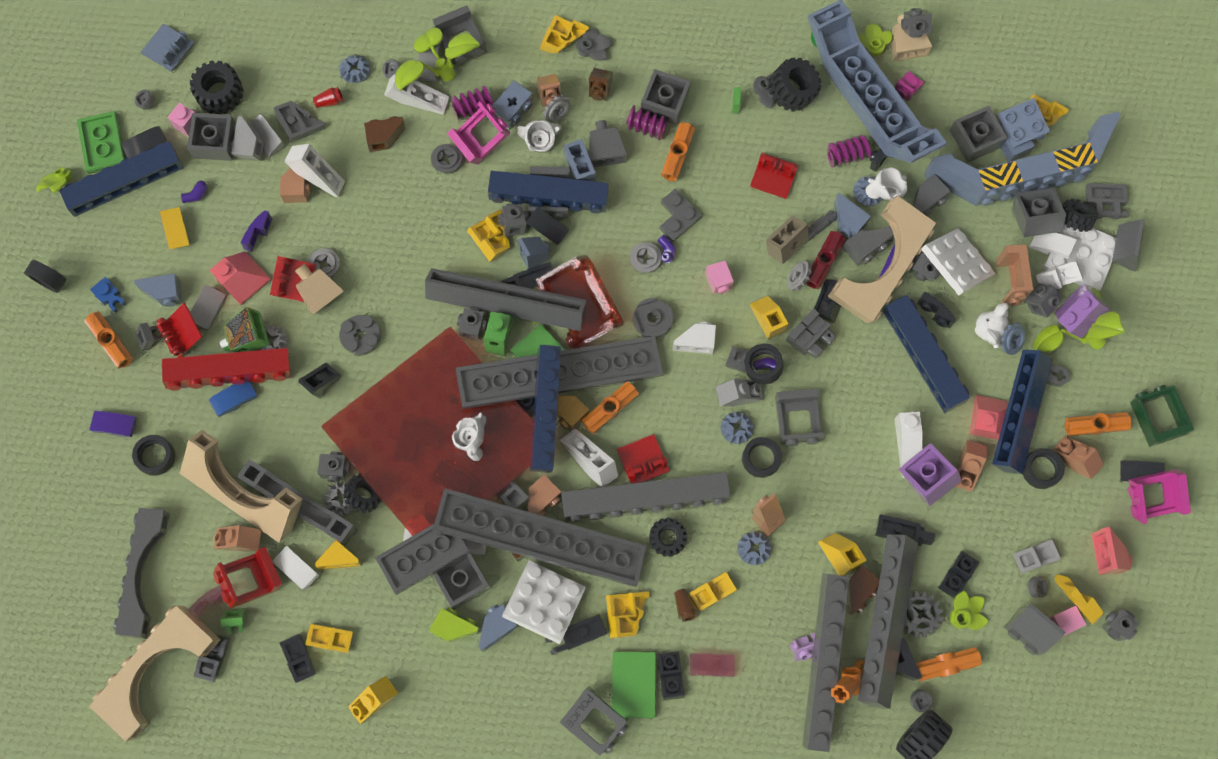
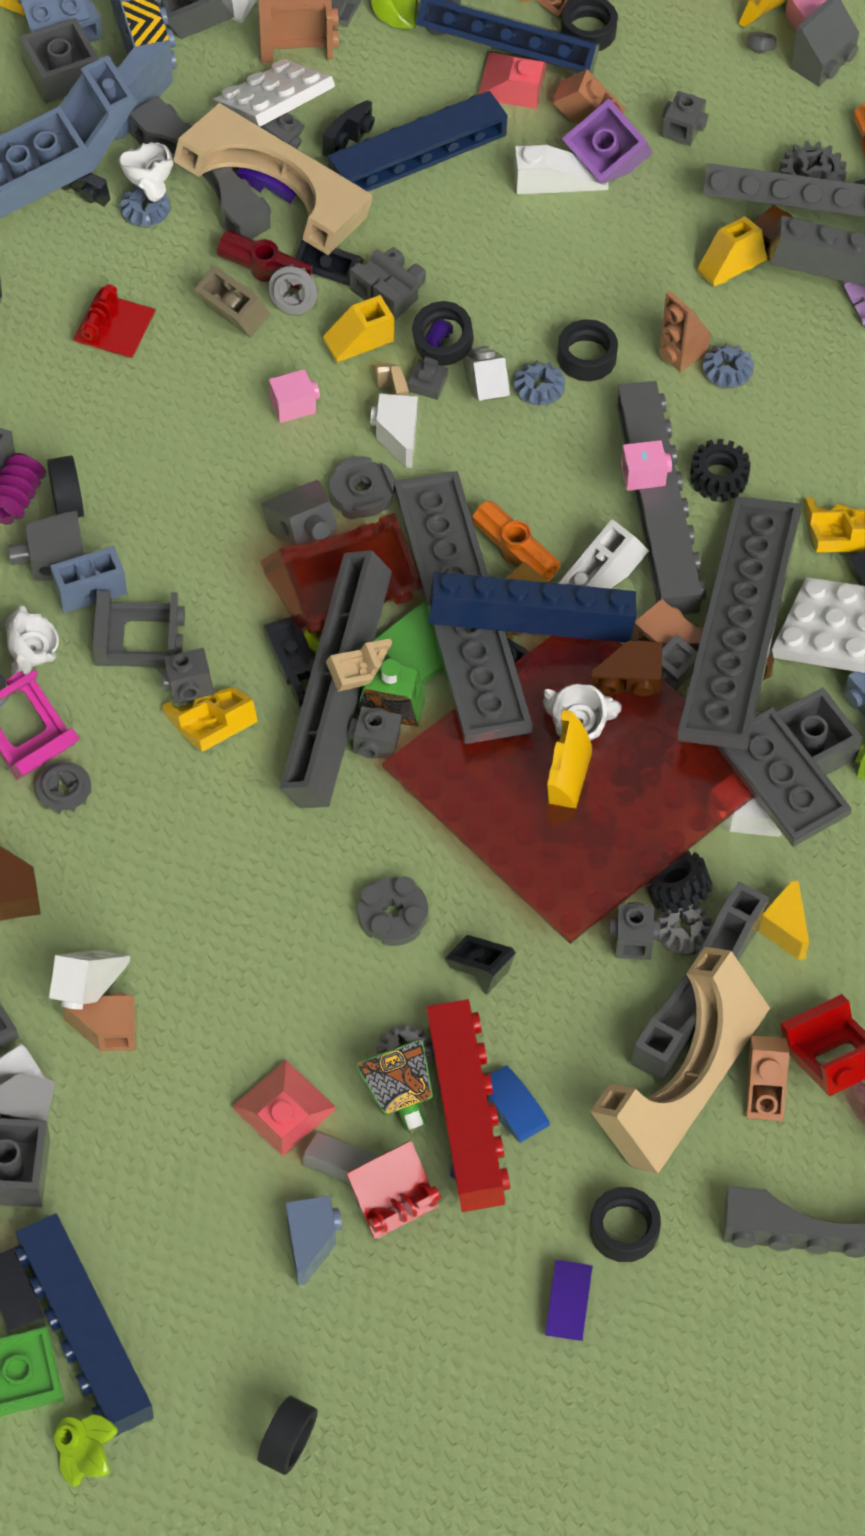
camera: 90 degrees left, 15 degrees down
(102, 331) = (392, 1332): orange piece -> none
(107, 293) = (314, 1338): blue plate -> none
(145, 336) = (402, 1255): dark grey tile -> none
(174, 228) = (182, 1222): yellow slope -> none
(196, 194) = (118, 1192): dark purple arm -> none
(258, 227) = (187, 1075): dark purple slope -> none
(286, 278) = (291, 1016): red hinge -> none
(295, 568) = (809, 985): white slope -> none
(316, 288) = (316, 969): tan torso -> none
(322, 255) = (252, 960): light grey gear -> none
(432, 427) = (569, 762): none -> yellow slope
(500, 305) = (358, 666): none -> tan slope
(501, 469) = (631, 669): none -> reddish brown slope
(533, 251) = (248, 647): sand blue slope -> none
(547, 225) = (199, 625): black slope -> none
(548, 191) = (139, 623): dark blue brick -> none
(626, 282) = (300, 514): none -> dark grey torso
(639, 251) = (243, 491): light grey gear -> none
(643, 148) = (65, 485): none -> black tyre
(643, 460) = (596, 501): red hinge -> none
(655, 483) = (645, 465): none -> bright pink brick
(669, 249) = (240, 466): dark purple arm -> none
(675, 161) = (69, 441): orange piece -> none
(682, 217) = (180, 446): dark grey plate -> none
(685, 606) = (824, 449): reddish brown cone -> none
(713, 591) = (796, 416): yellow slope -> none
(729, 339) = (391, 375): none -> tan slope
(798, 401) = (495, 305): dark grey window -> none
(821, 223) = (198, 264): dark grey axle -> none
(847, 149) = (79, 223): magenta piece -> none
(849, 216) = (192, 227): sand blue slope -> none
(894, 526) = (687, 194): black hinge -> none
(958, 574) = (745, 127): black slope -> none
(959, 528) = (684, 111): none -> dark grey brick
(970, 610) = (808, 122): lime plate -> none
(993, 329) = (382, 64): white hair -> none
(1013, 344) = (394, 41): sand blue gear -> none
(1036, 556) = (715, 40): light grey slope -> none

